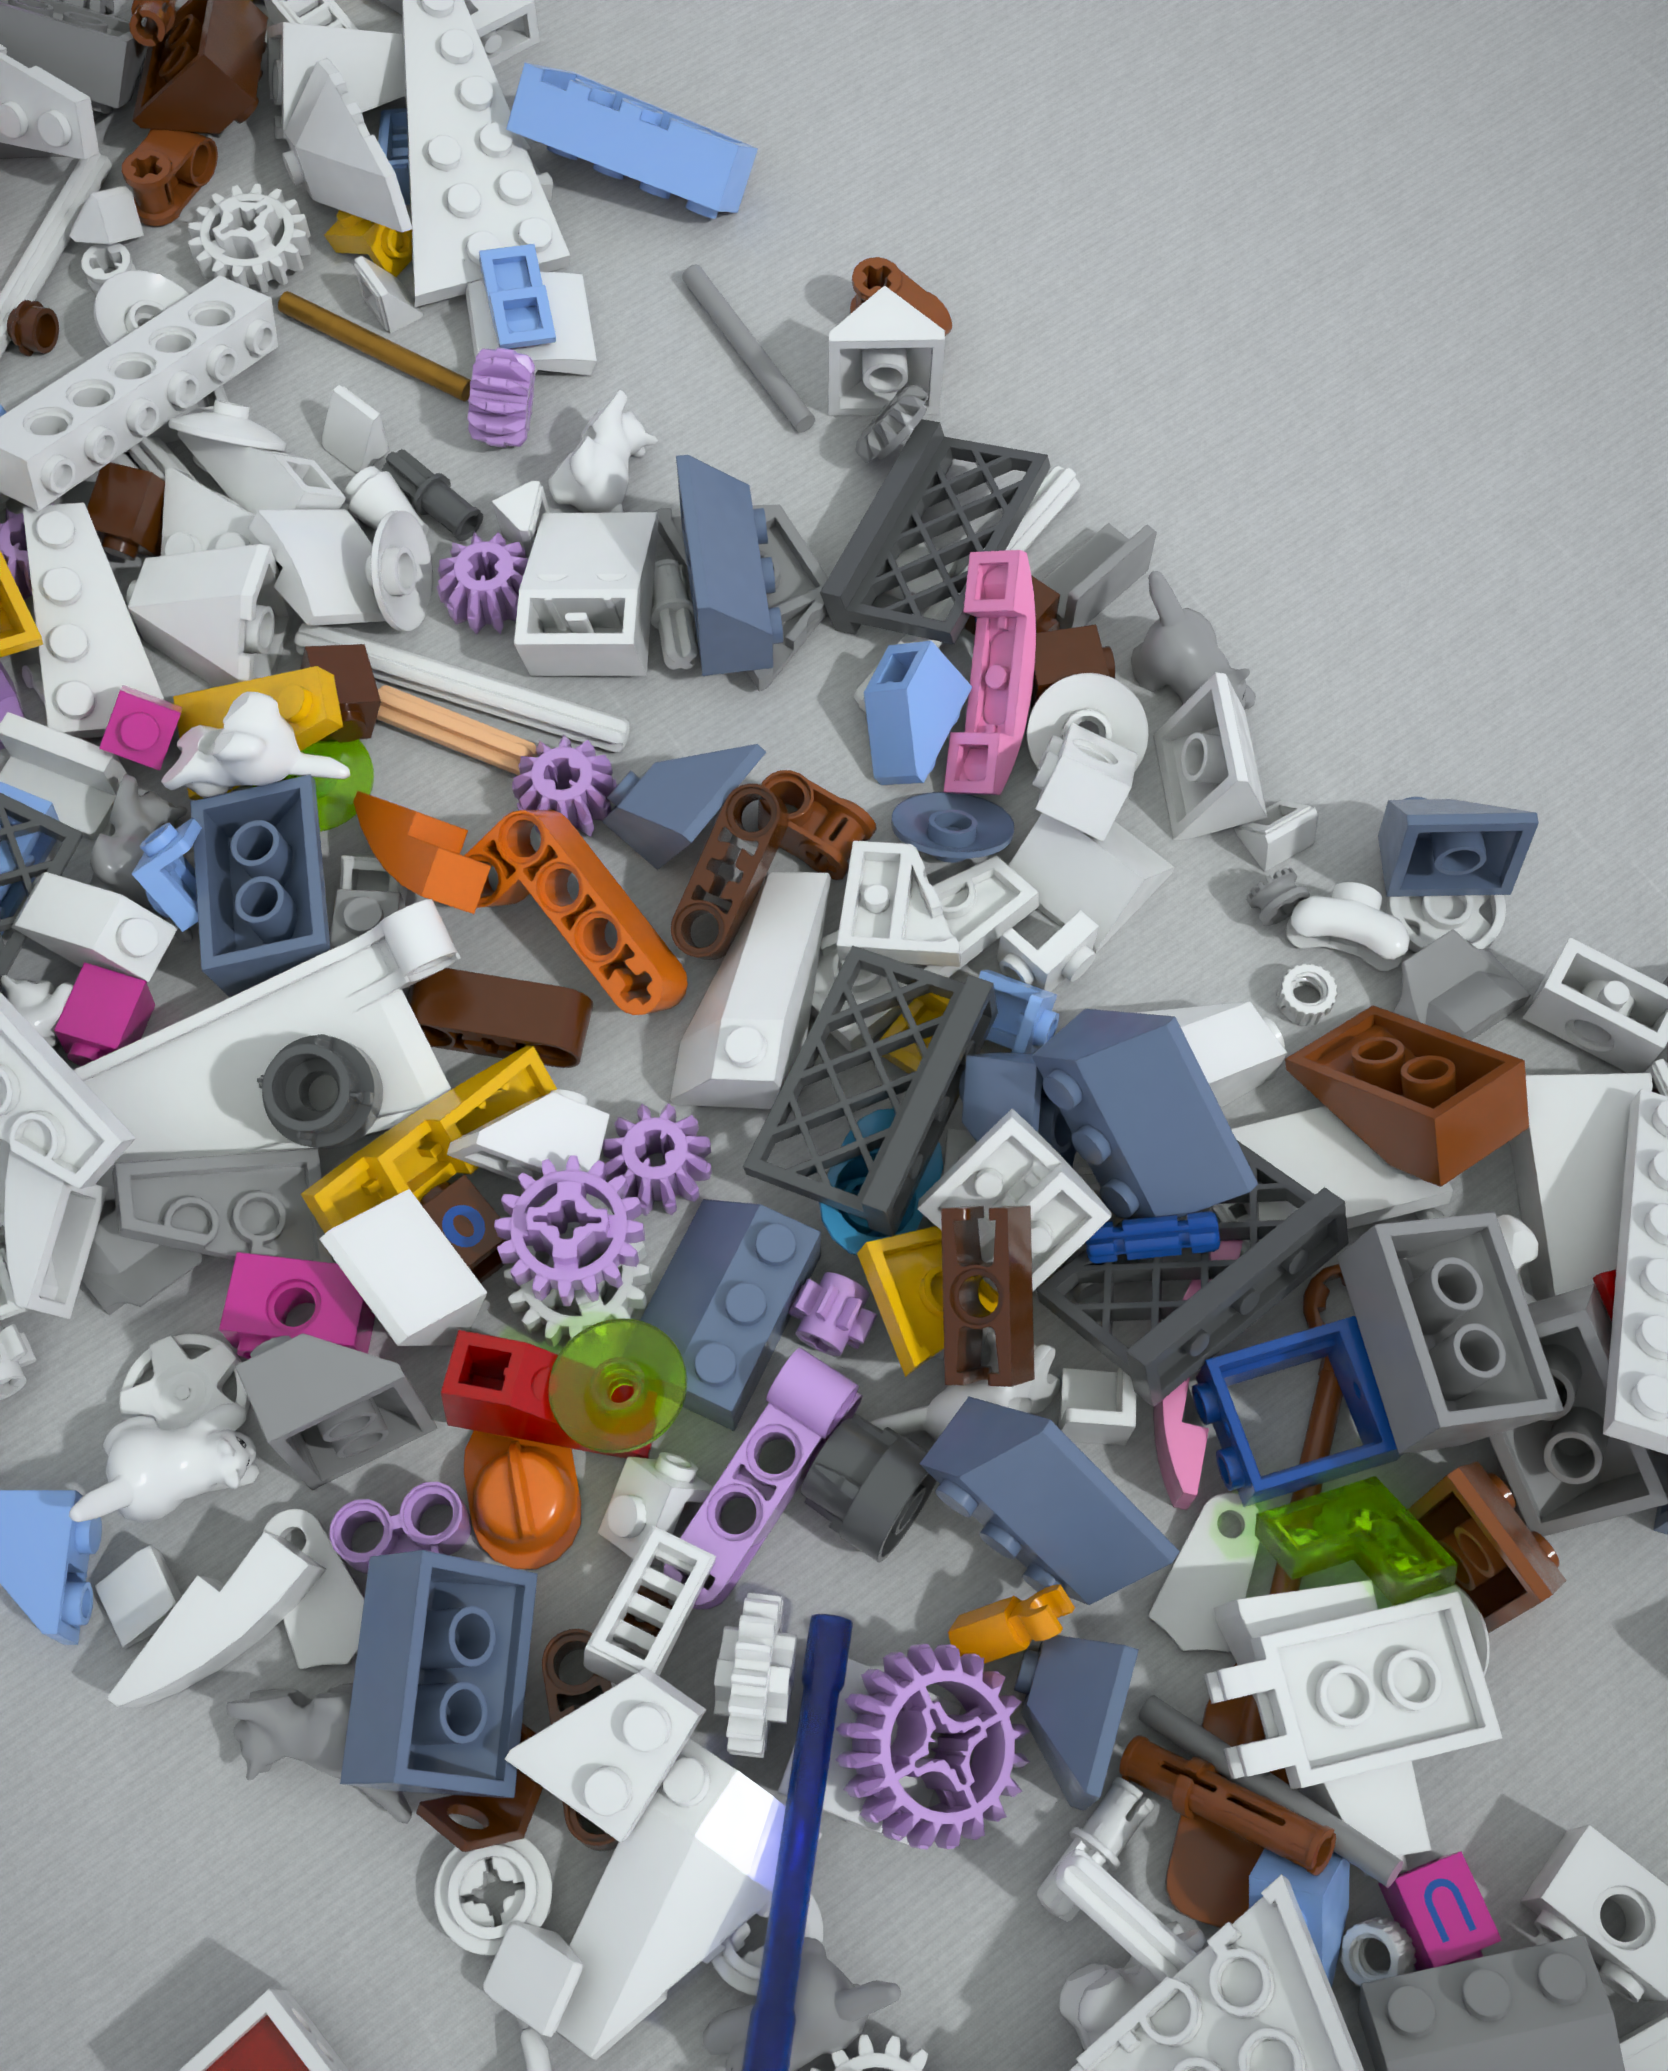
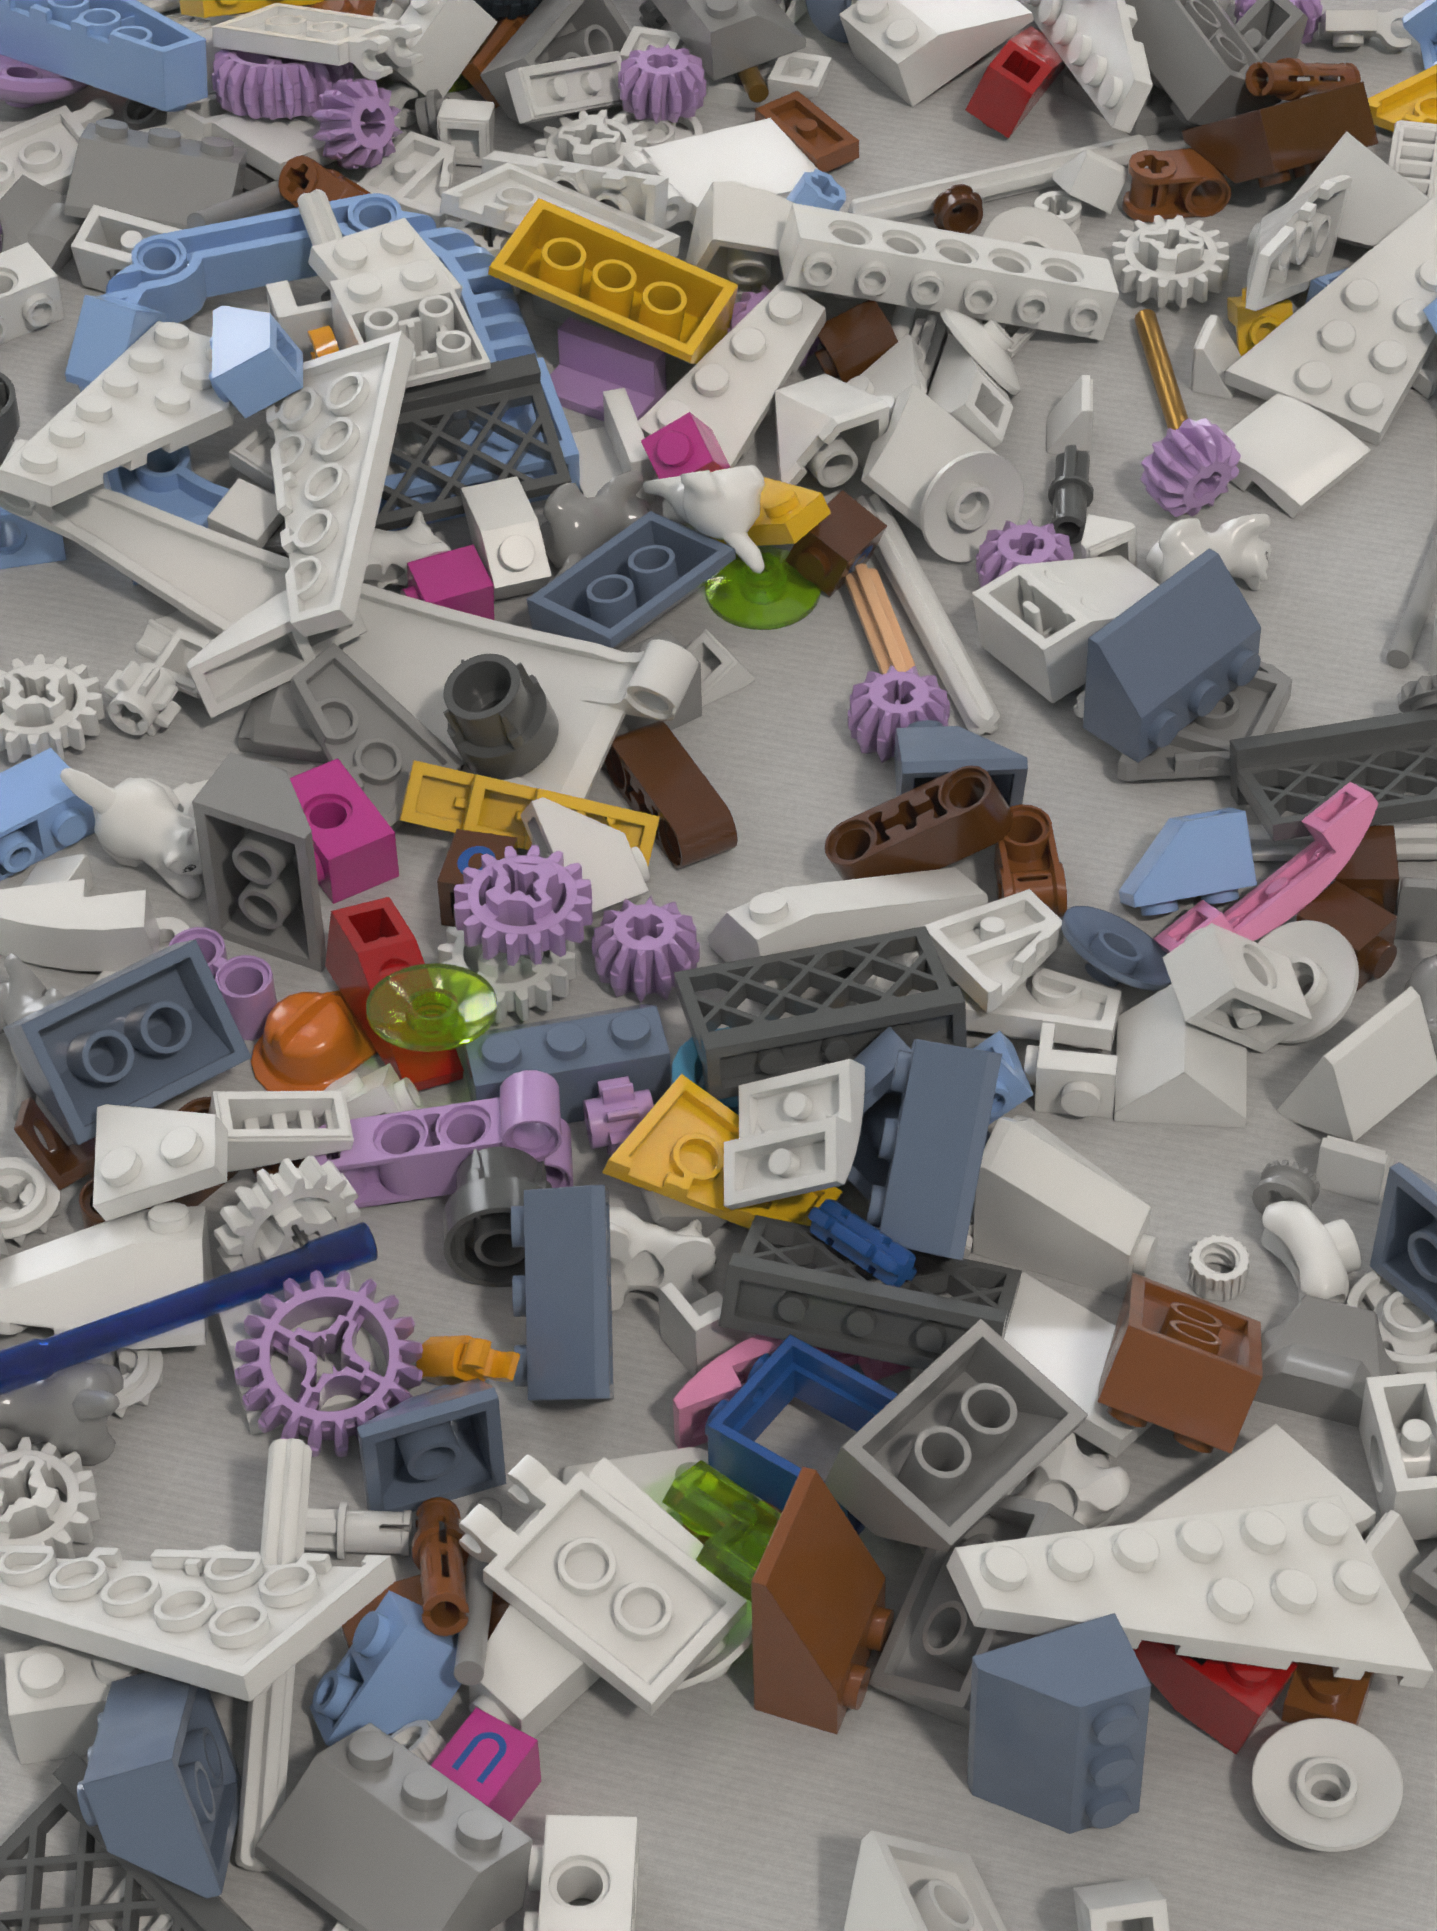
camera: 55 degrees right, 20 degrees down
(168, 875) = (583, 530): light blue bracket -> none
(375, 494) = (1035, 463): white cone -> none
(407, 1272) = (402, 840): white slope -> none
(422, 852) = (743, 653): orange slope -> none
(516, 296) = (1291, 420): light blue slope -> none
(582, 920) = (811, 741): orange beam -> none
(962, 1309) = (701, 1151): reddish brown piece -> none

